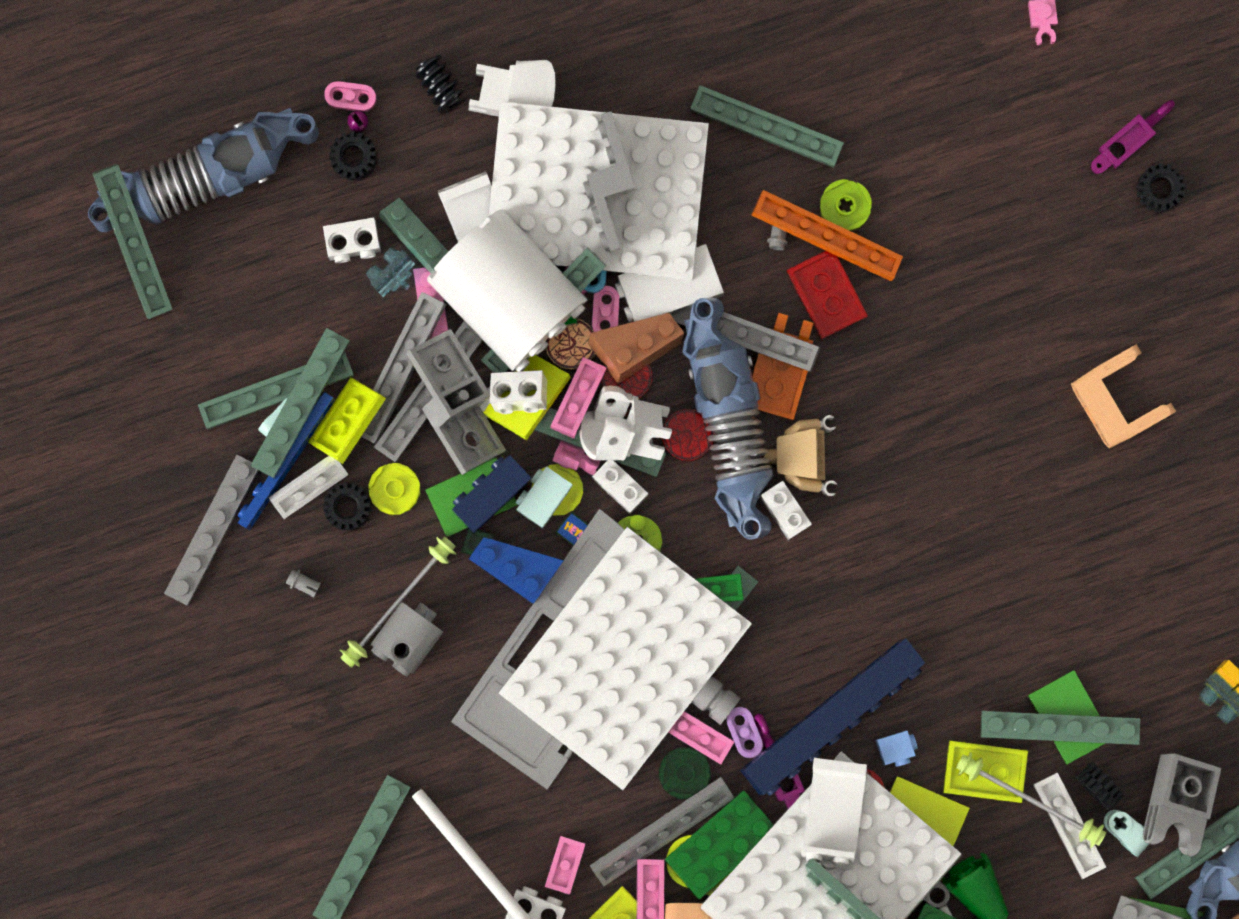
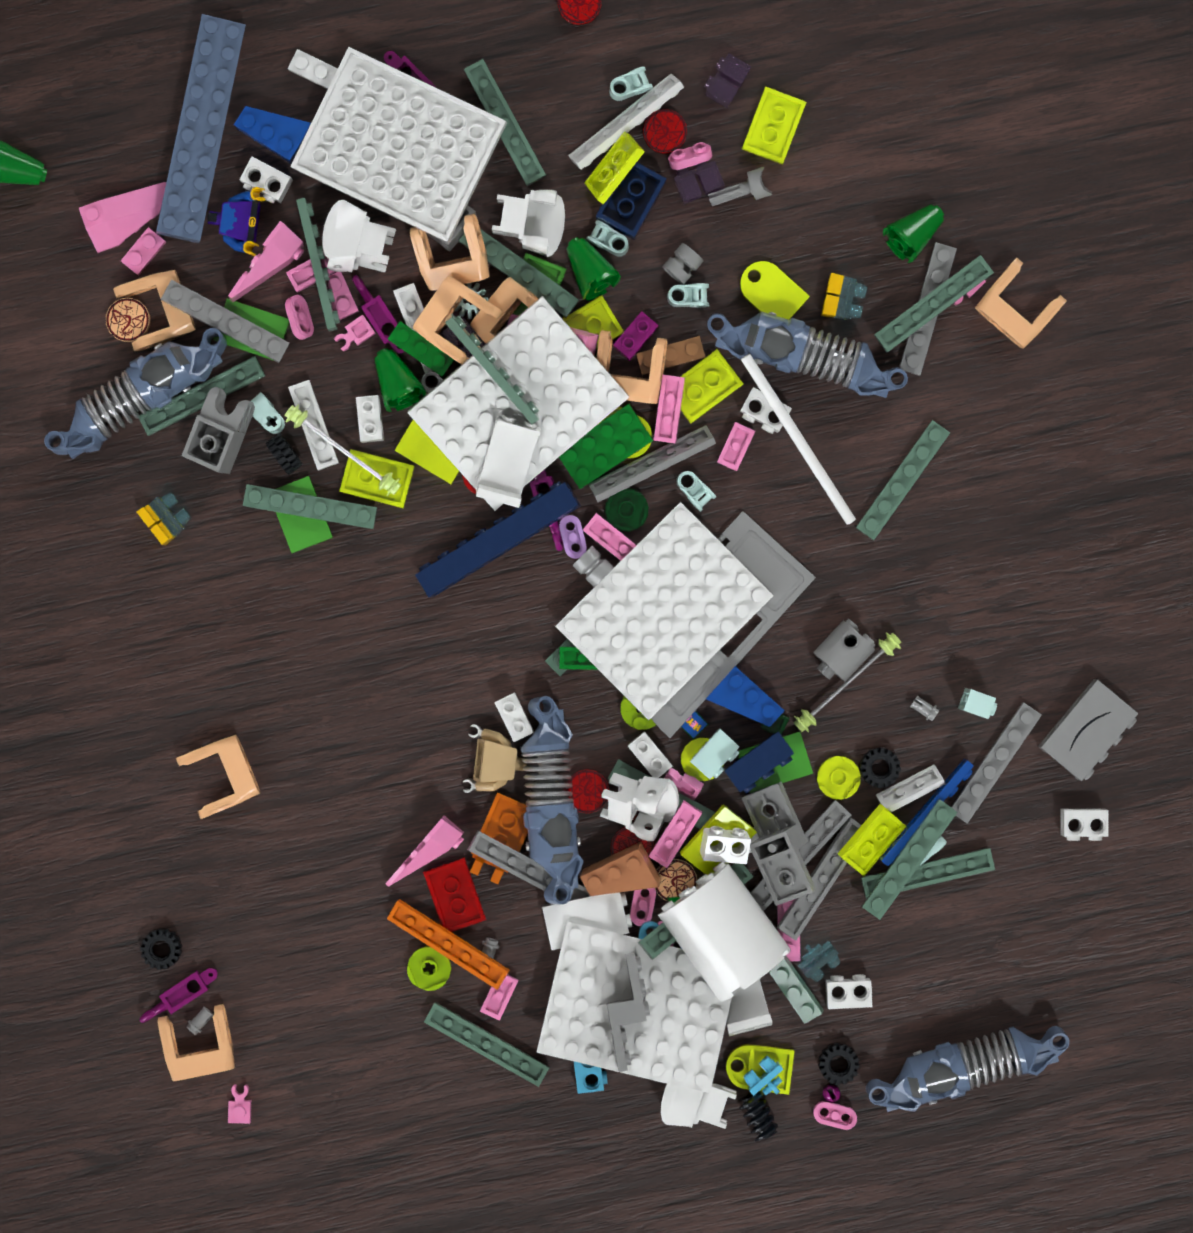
camera: 175 degrees left, 5 degrees up
(99, 479) = (1084, 819): none -> white brick
(106, 582) = (1088, 730): none -> light grey panel
(132, 241) = (1034, 1015): sand green plate -> none
(241, 596) = (977, 703): none -> light aqua brick
(431, 137) = (771, 1070): none -> medium azure hips
(439, 139) = (752, 1055): none -> neon yellow tile
(605, 805) = (696, 490): none -> light aqua piece
(648, 92) = (582, 1071): none -> medium azure brick
(760, 178) = (498, 999): none -> bright pink plate
(856, 351) = (437, 842): none -> bright pink wedge
(897, 748) = (447, 507): light blue brick -> none
(1003, 841) = (370, 418): none -> white brick
(1095, 63) = (199, 1062): none -> light nougat connector
(1104, 110) = (199, 1020): none -> light grey pin

